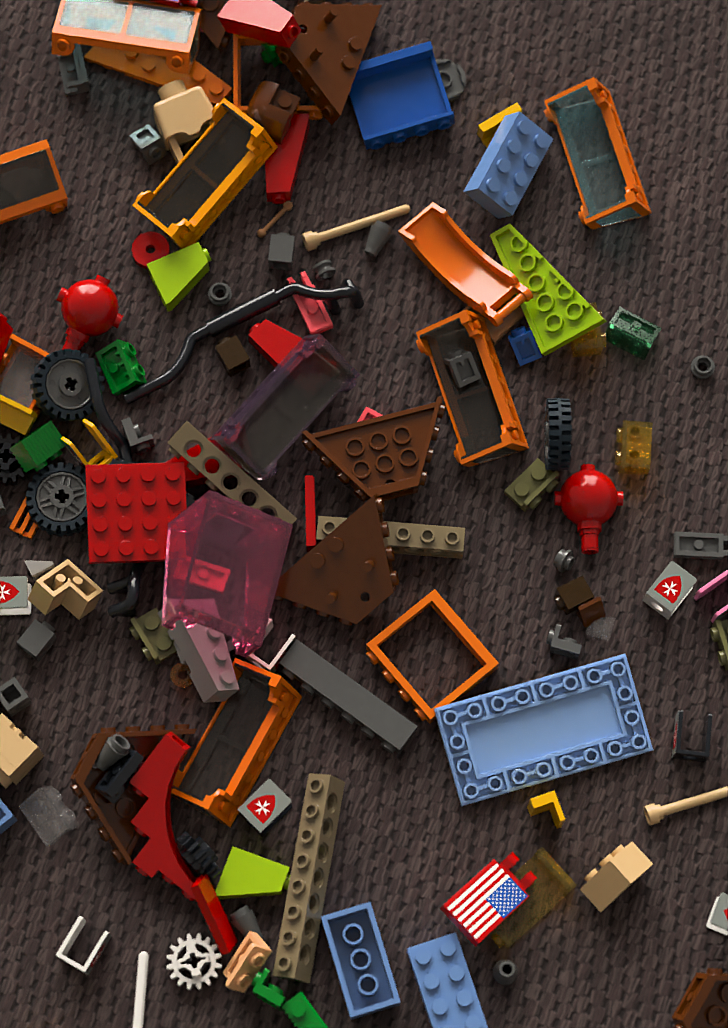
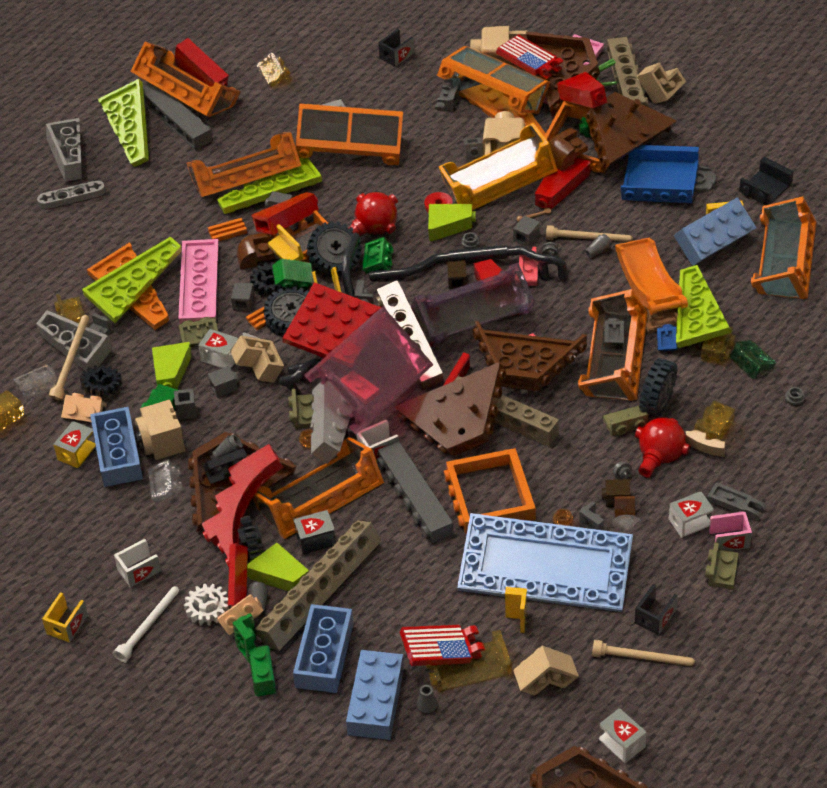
camera: 30 degrees right, 25 degrees down
(527, 55) = (768, 182): none -> black panel
(535, 650) = (563, 513): none -> clear orange plate
(631, 481) = (698, 441): none -> tan slope

